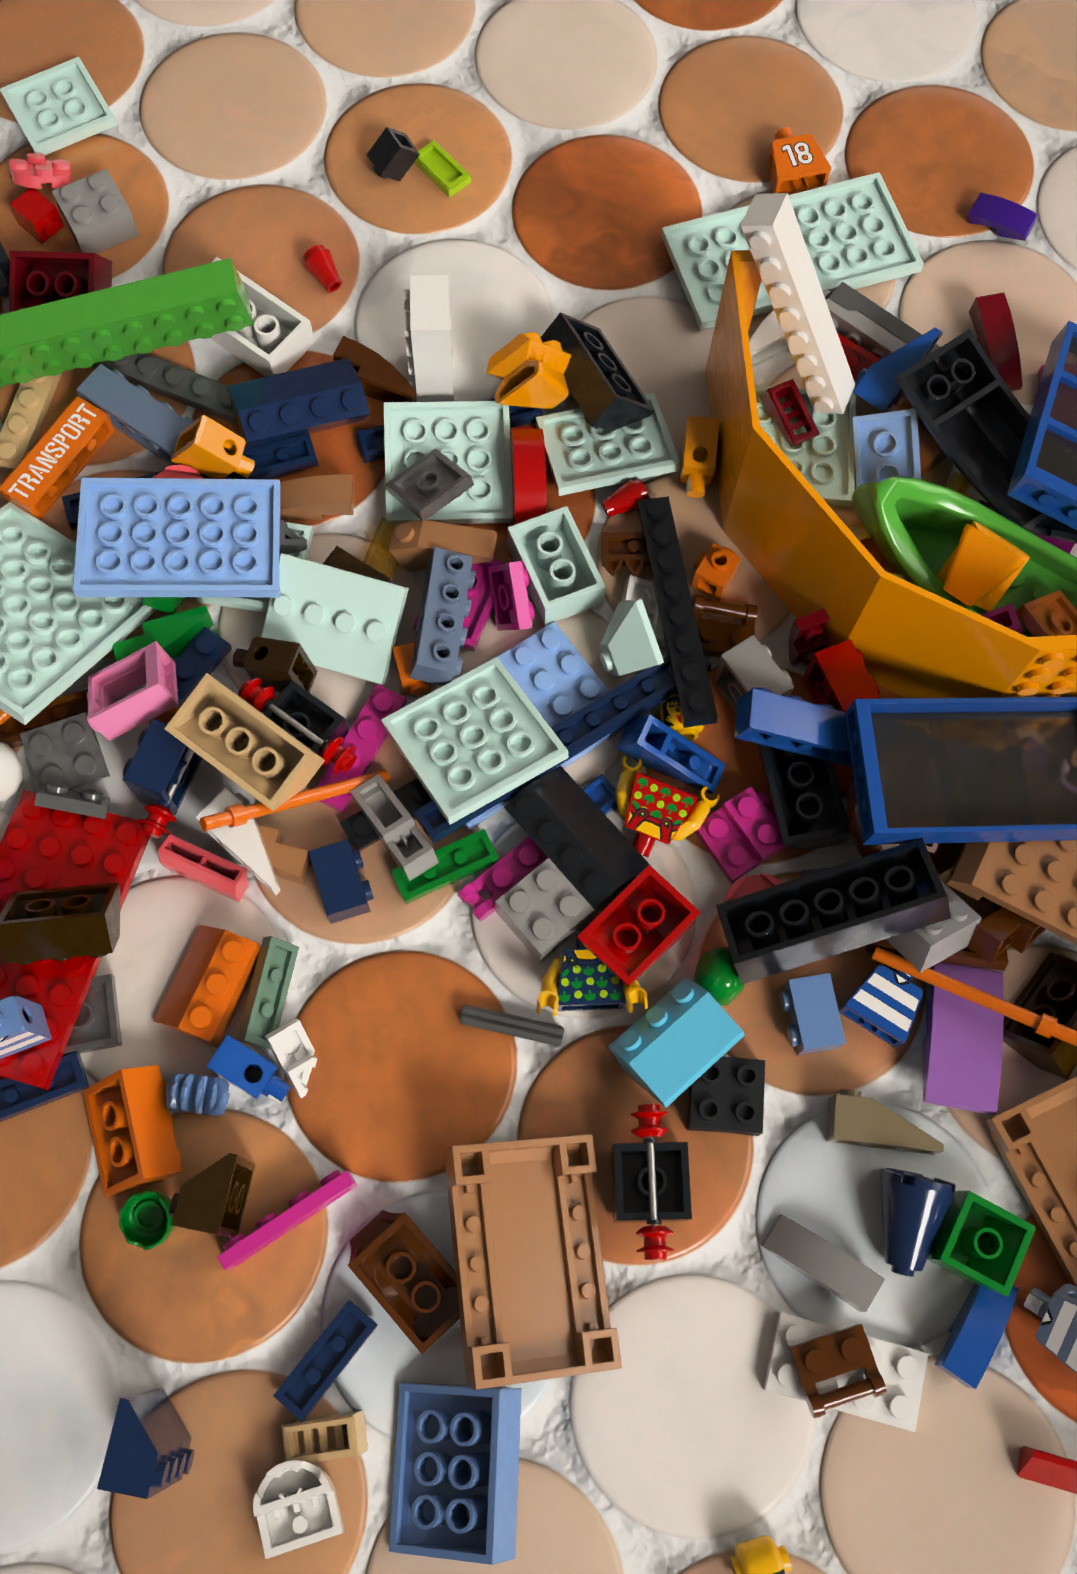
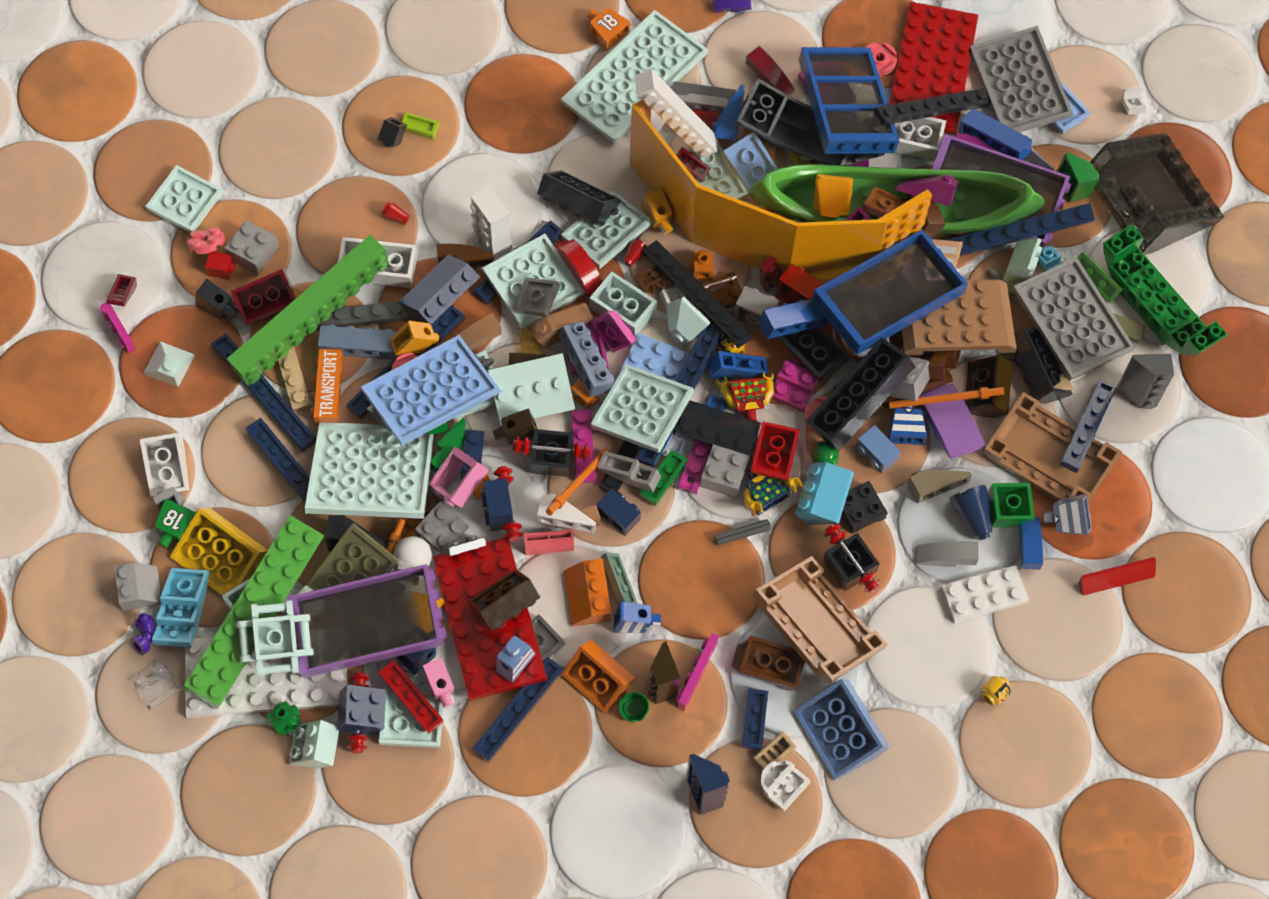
camera: 30 degrees left, 5 degrees down
(197, 1094) = (619, 641): medium blue gear -> none
(243, 743) = (537, 466): tan slope -> none
(293, 1053) = (647, 596): white slope -> none
(530, 372) = (549, 213): light orange piece -> none
(833, 1356) = (975, 587): reddish brown plate -> none

